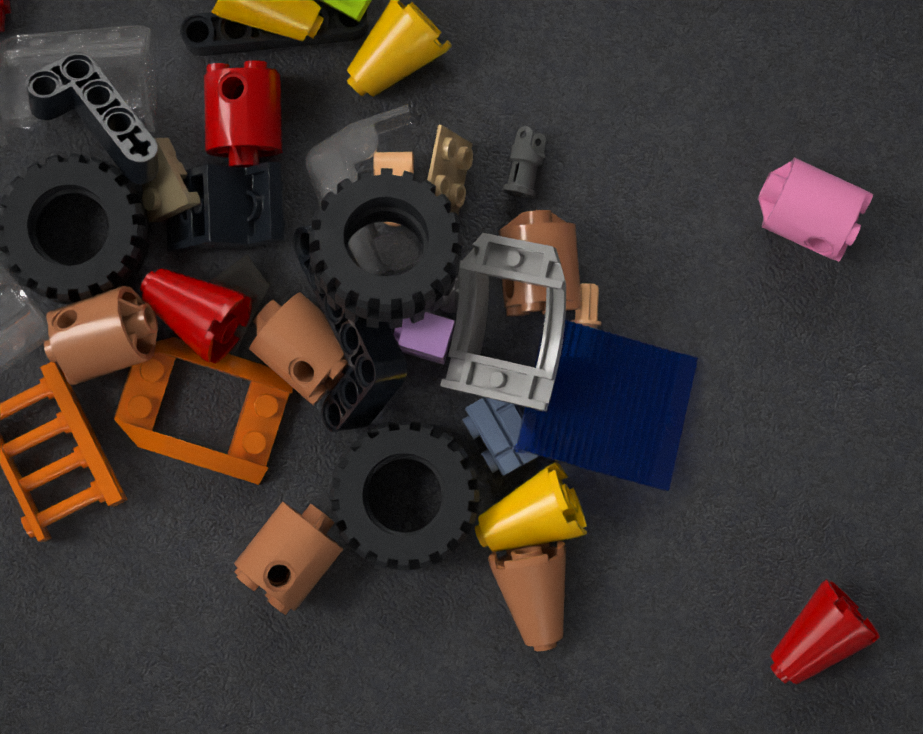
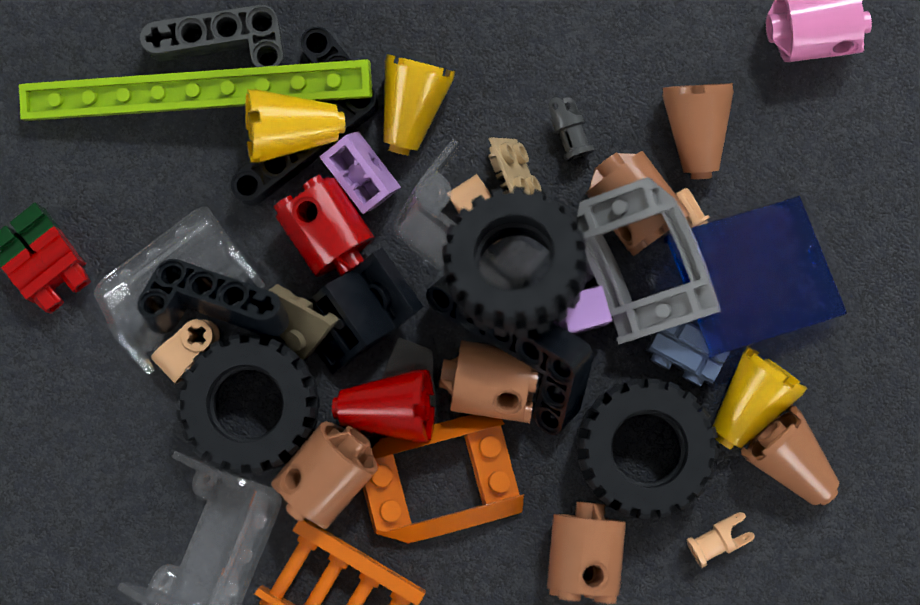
camera: 35 degrees left, 0 degrees up
(44, 141) = (178, 351): none -> light nougat piece
(307, 83) = (360, 172): none -> lavender brick
(418, 622) = (718, 540): none -> light nougat piece
(644, 233) = (699, 125): none -> nougat cone

